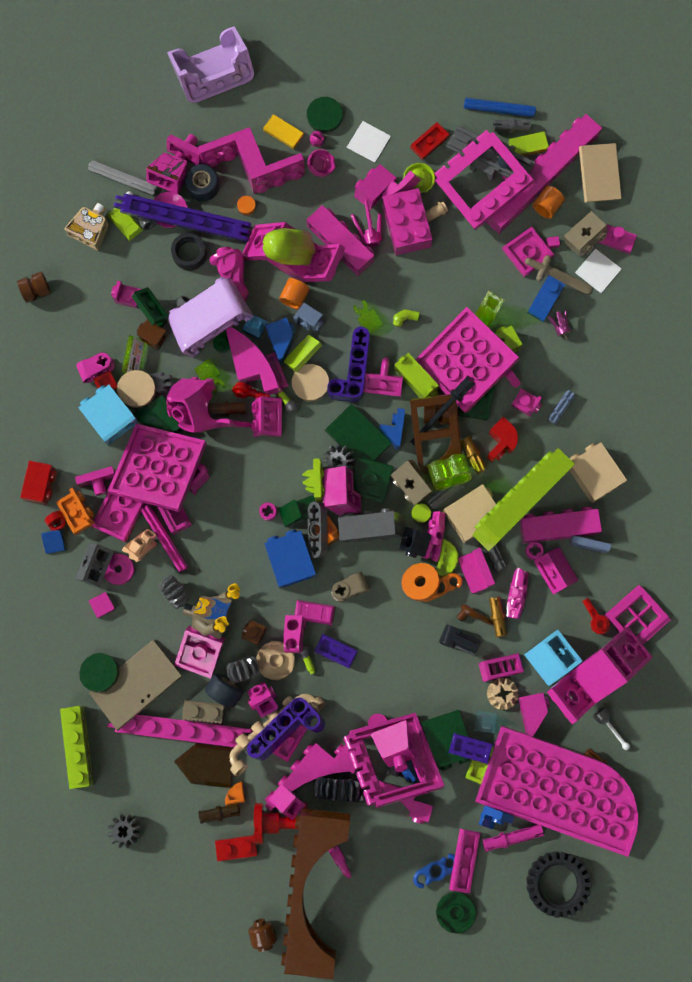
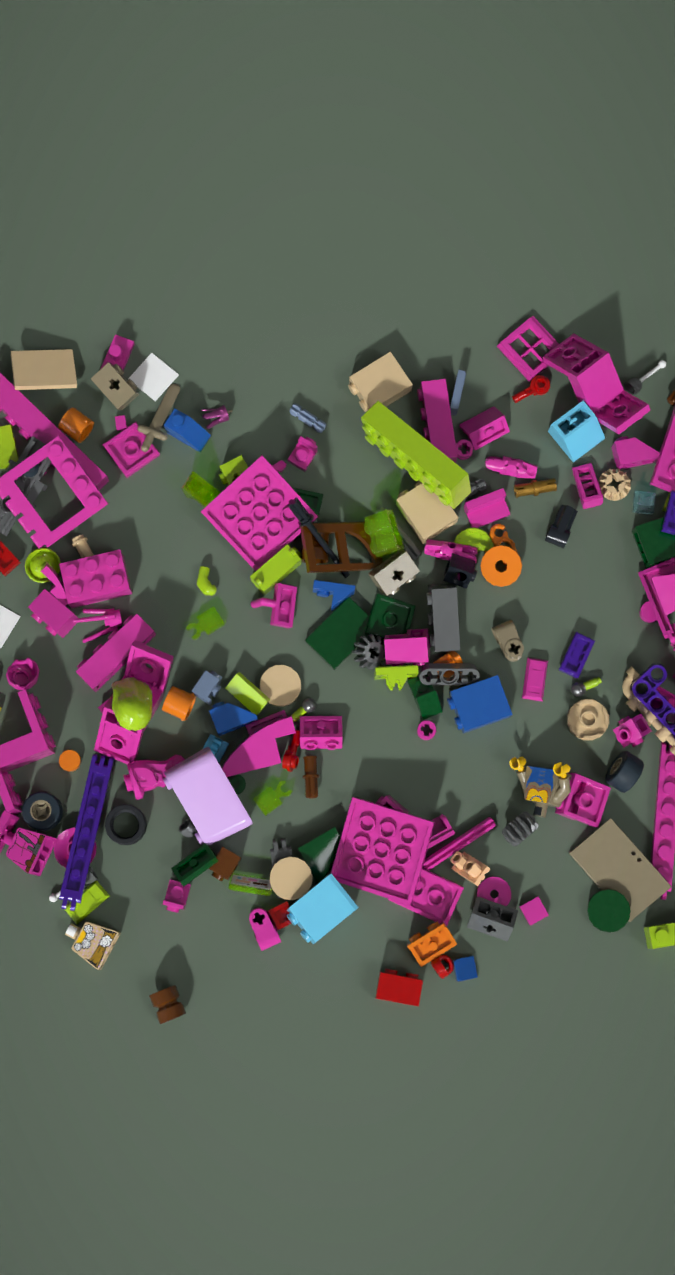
camera: 95 degrees left, 0 degrees up
(96, 479) = (395, 920): dark pink tile -> none
(122, 177) = (32, 906): light grey axle -> none
(189, 406) = (311, 815): dark pink hips -> none
(203, 712) = (647, 794): dark tan brick -> none
(243, 669) = (601, 751): dark grey gear -> none
(253, 632) = (560, 742): reddish brown brick -> none
(294, 633) = (562, 698): dark pink leg -> none
(354, 364) = (260, 638): dark purple beam -> none
(421, 513) = (426, 566): lime tile -> none
(466, 610) = (529, 517): reddish brown bar -> none
(473, 454) = (362, 510): pearl gold axle -> none
(506, 436) = (342, 475): red brick -> none

